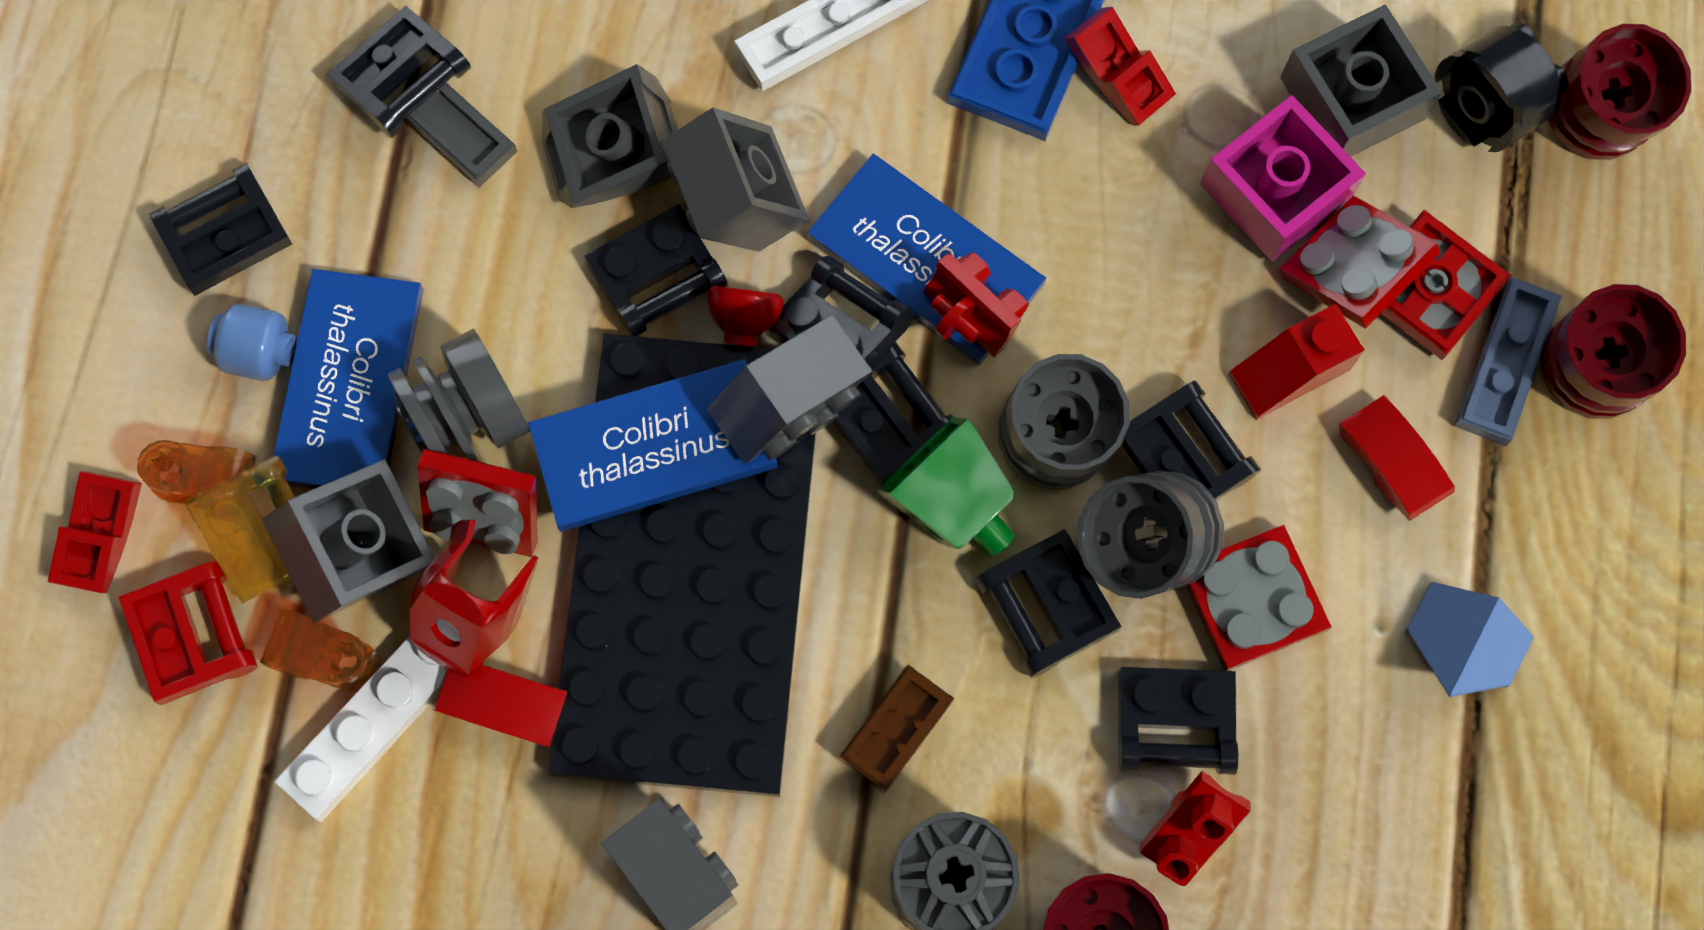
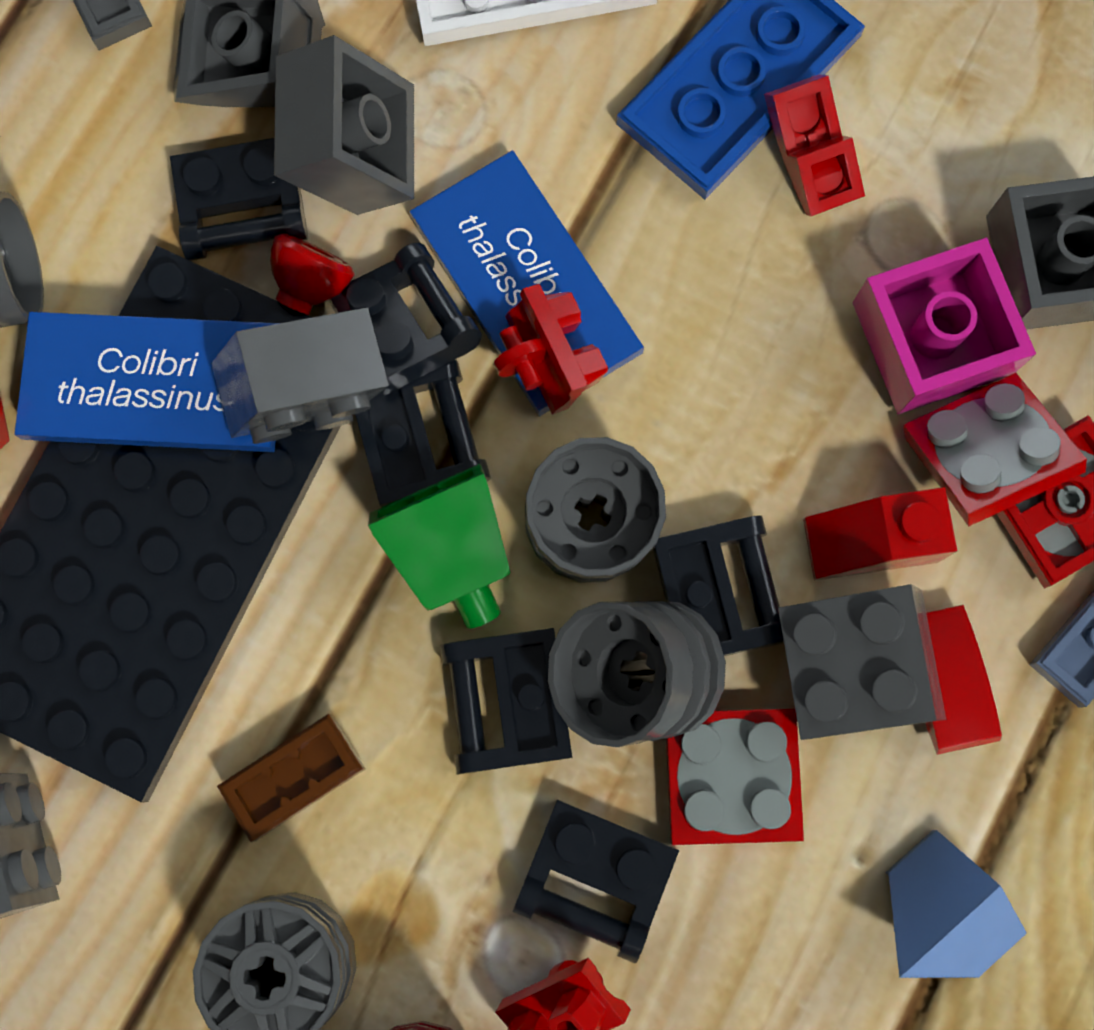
camera: 25 degrees right, 5 degrees up
(1323, 466) = (861, 662): none -> dark grey brick

